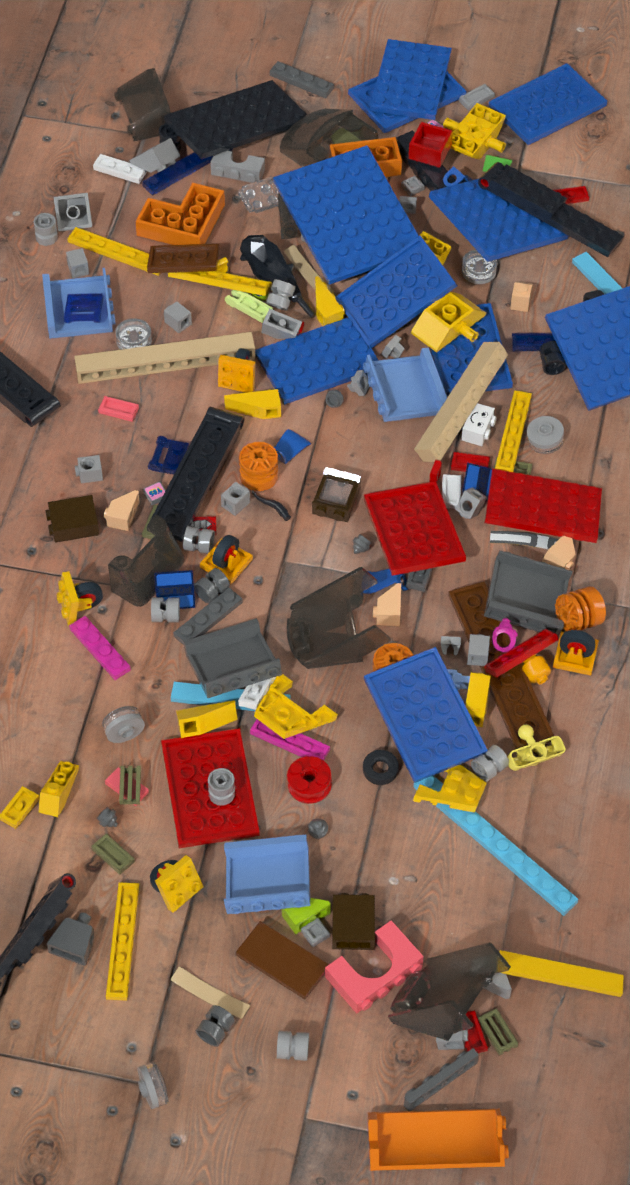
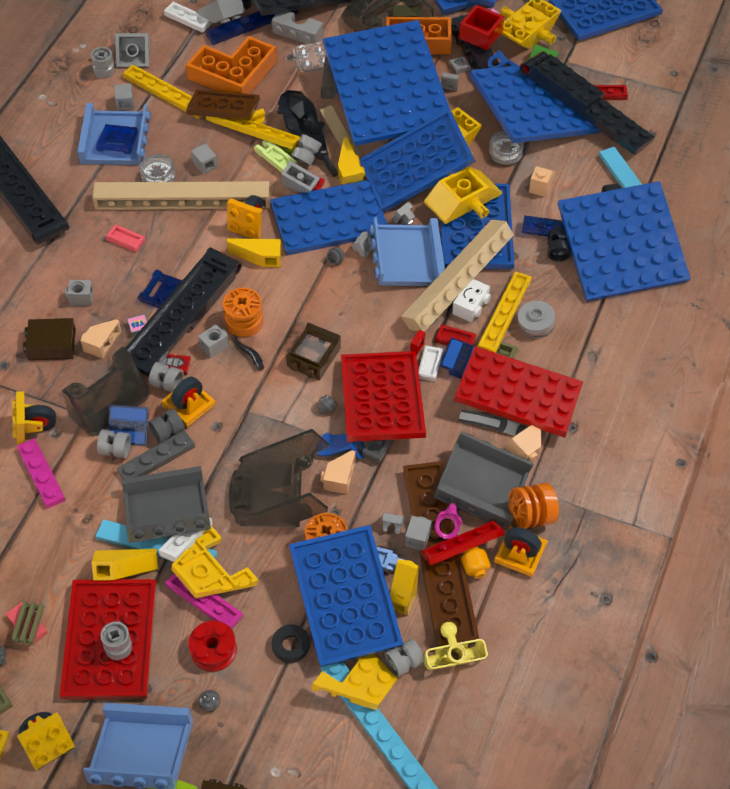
camera: 10 degrees right, 0 degrees up
(123, 724) = (37, 557): light grey piece -> none
(290, 445) = (280, 296): blue piece -> none
(477, 500) = (451, 376): light grey brick -> none

